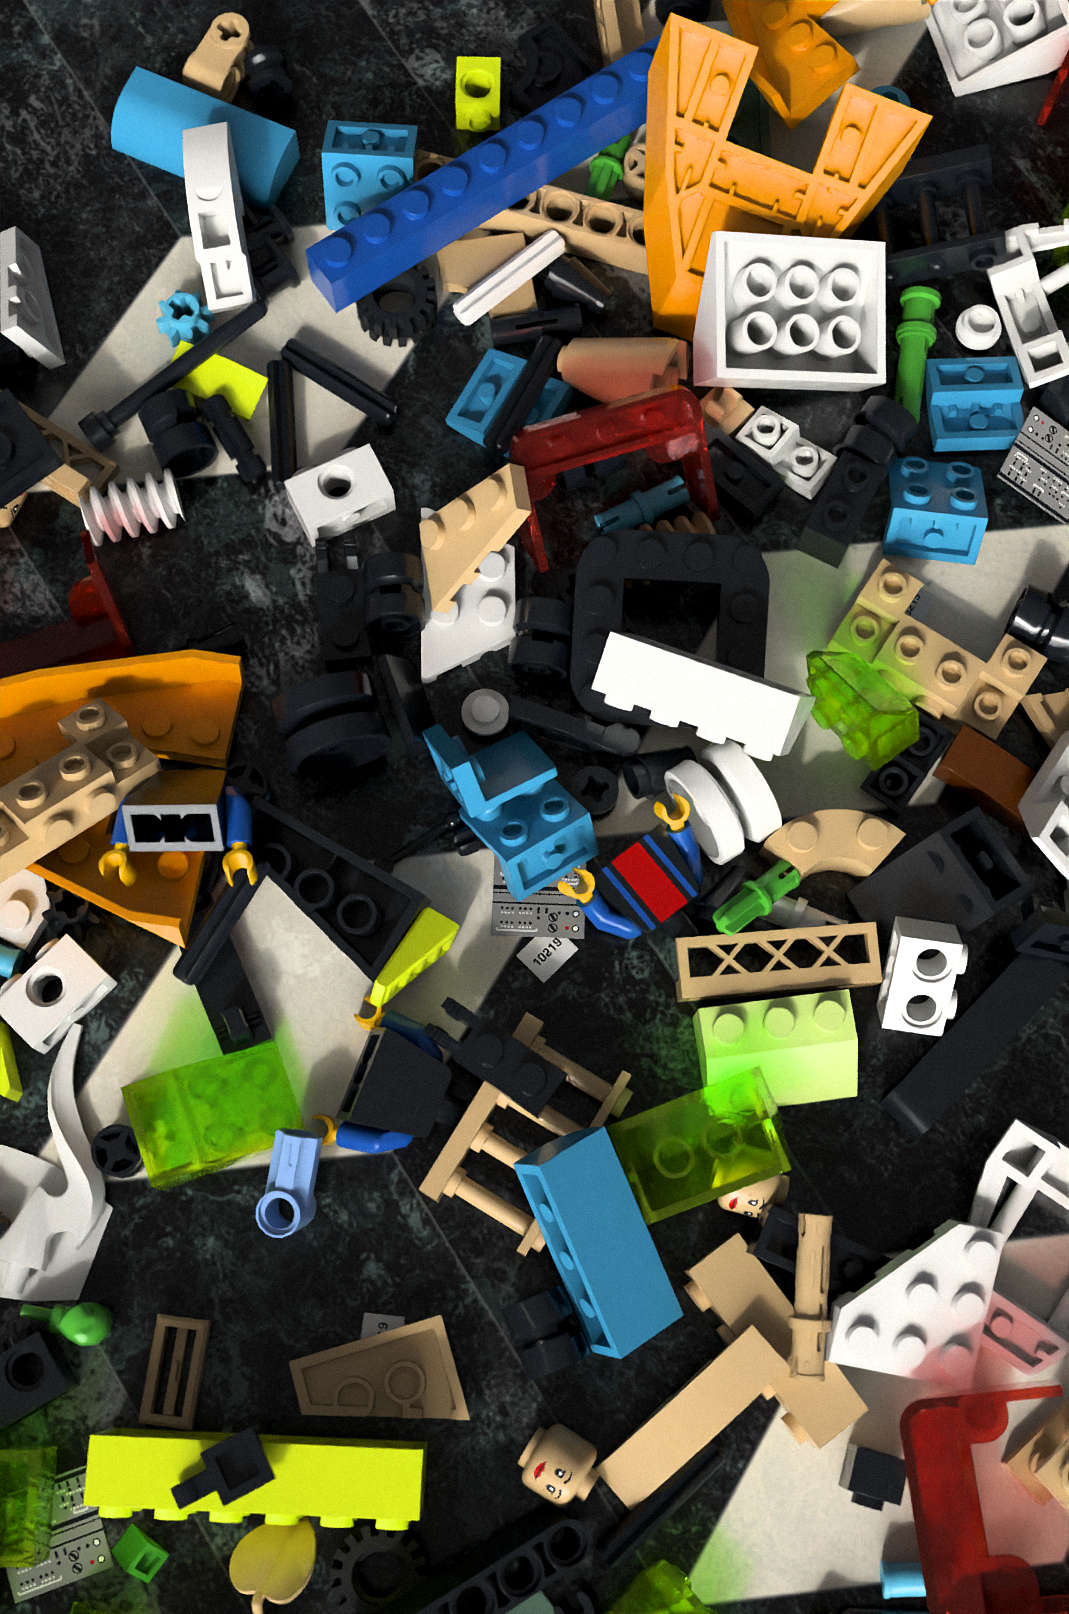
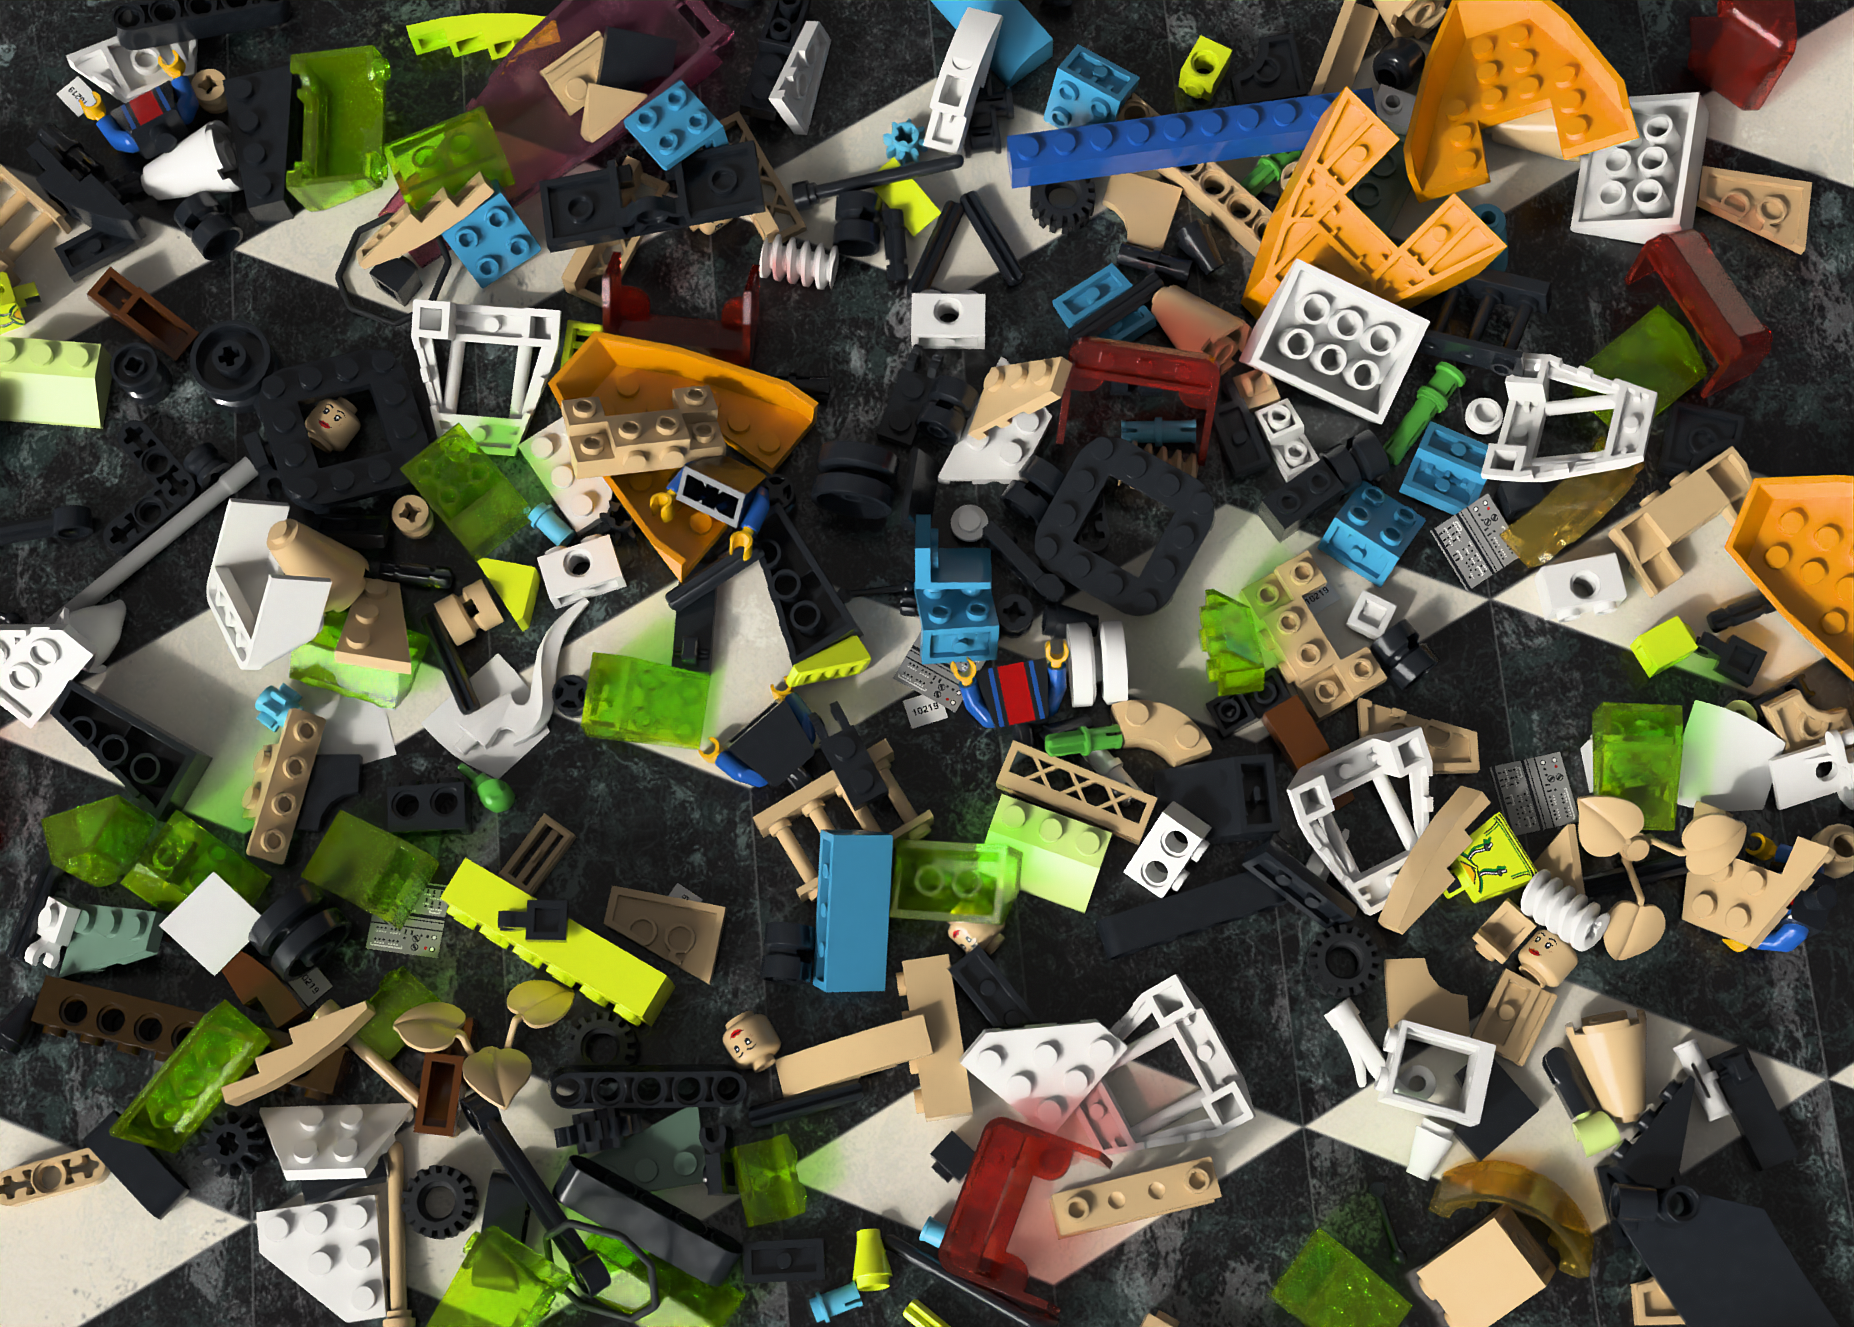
camera: 35 degrees right, 0 degrees up
(139, 1554) = (457, 958): bright green piece -> none
(290, 1177) = (674, 768): light blue piece -> none
(509, 277) = (1152, 218): white axle -> none
(701, 693) = (1116, 580): white slope -> none
(811, 1295) = (967, 1023): tan pin -> none
(984, 599) = (1371, 615): none -> white plate

